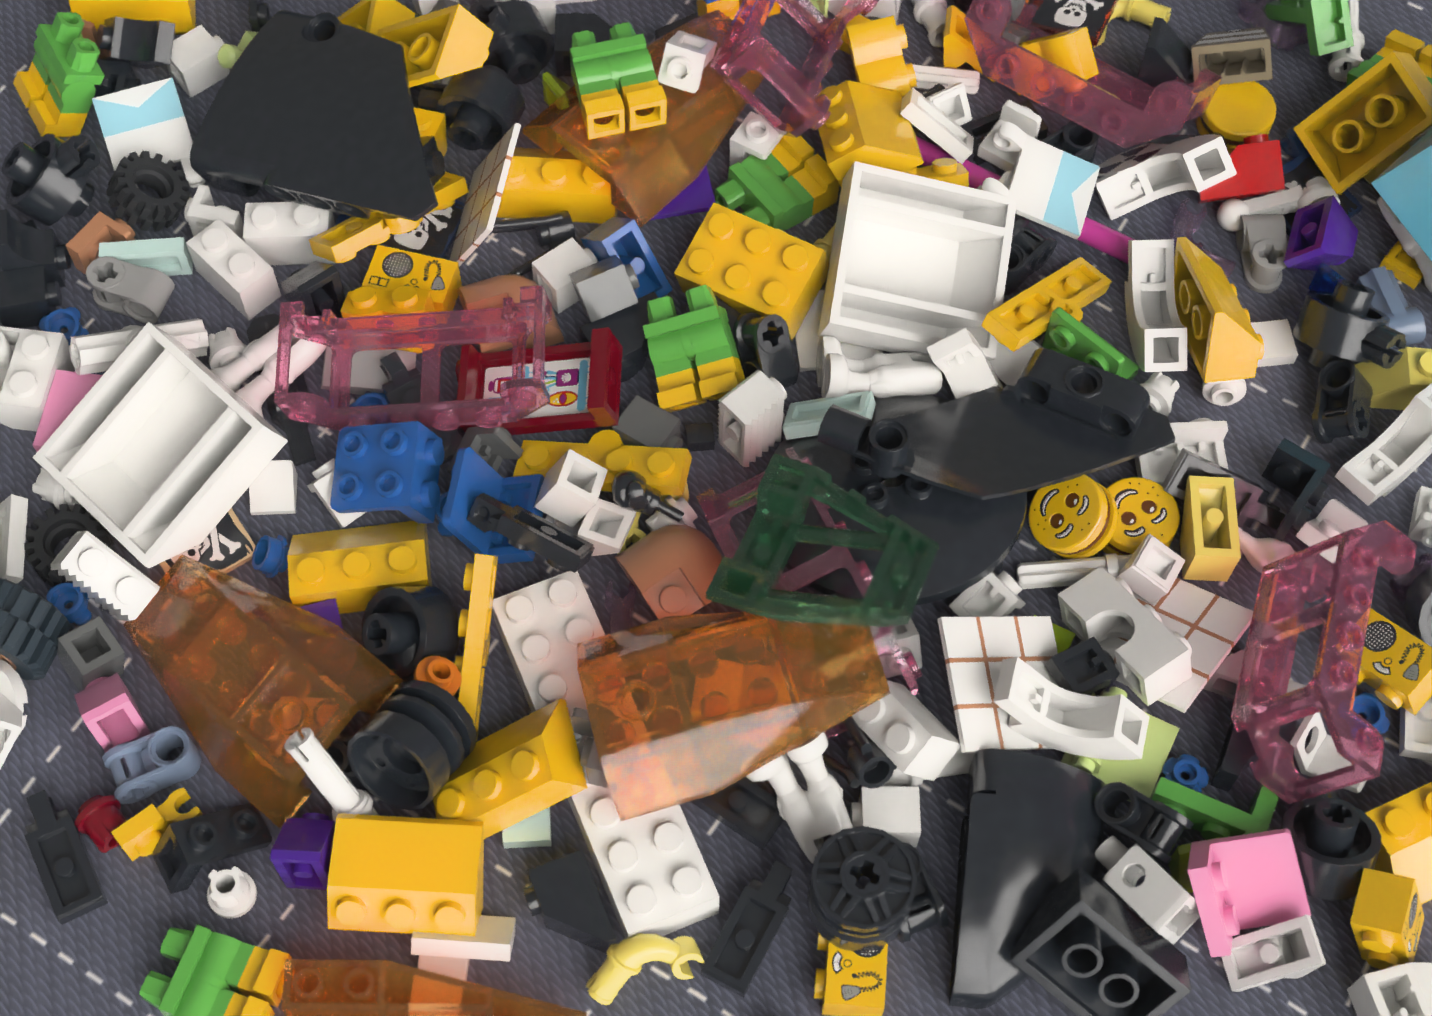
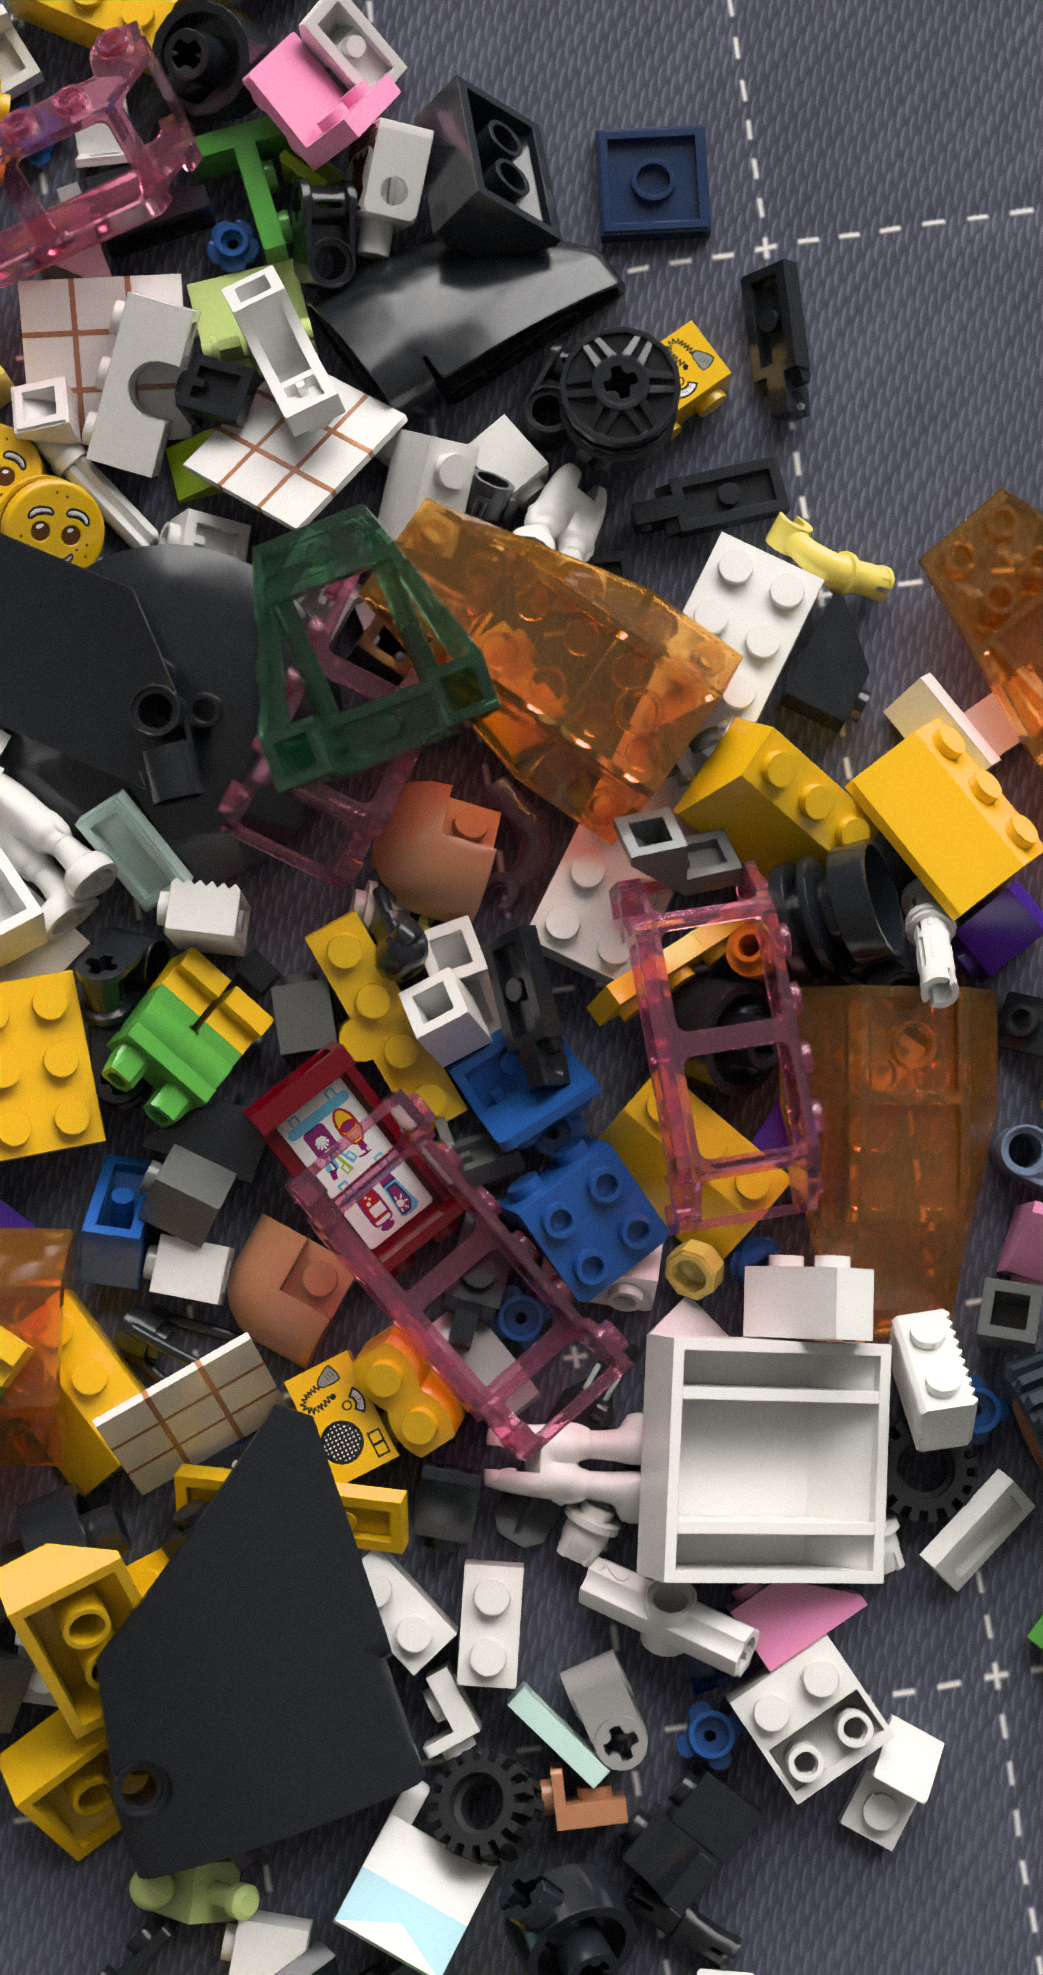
camera: 130 degrees left, 20 degrees up
(213, 540) = (809, 1301): none -> white brick
(302, 518) = (694, 1269): none -> light yellow tile
(412, 544) = (671, 1047): none -> clear pink windscreen
(527, 668) = (682, 863): none -> dark grey slope

